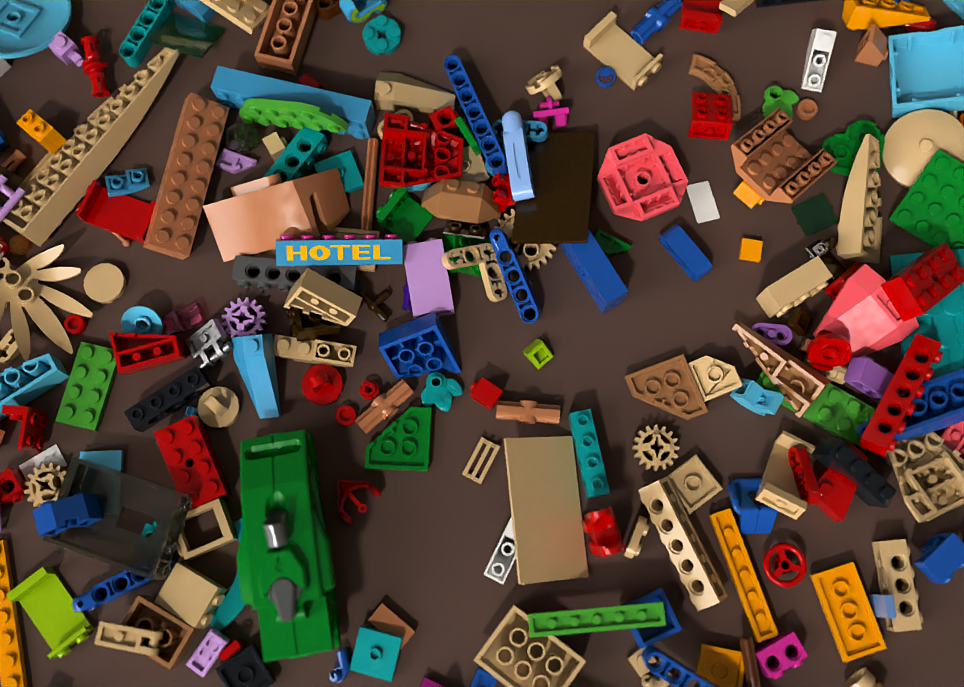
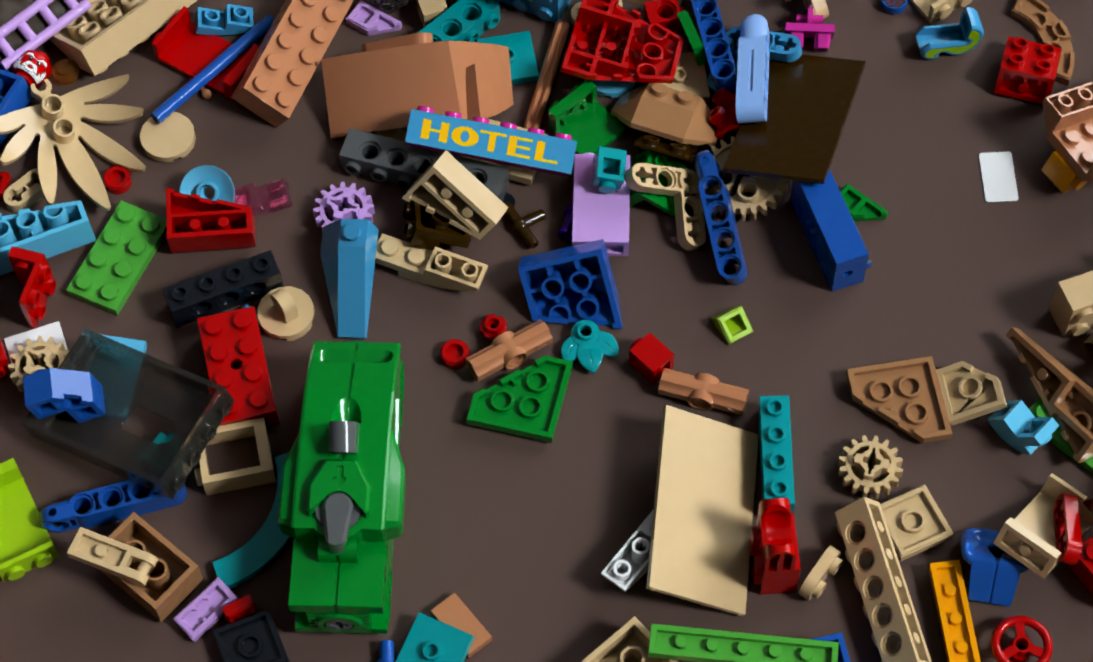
camera: 10 degrees right, 15 degrees down
(126, 224) = (212, 70): none -> blue piece
(190, 596) = (202, 530): tan brick -> none
(207, 338) = (288, 223): flat silver plate -> none
(322, 384) = (430, 310): red tile -> none
(344, 488) = (435, 438): red helmet -> none
(432, 250) = (610, 161): none -> teal brick
(489, 445) = (615, 438): tan tile -> none
(646, 160) = (921, 105): coral piece -> none
(651, 100) = (952, 37): none -> dark azure animal
(685, 252) = (961, 232): blue beam -> none
(750, 250) = (1052, 246): light orange tile -> none
(770, 332) = (1064, 350): medium lavender plate -> none

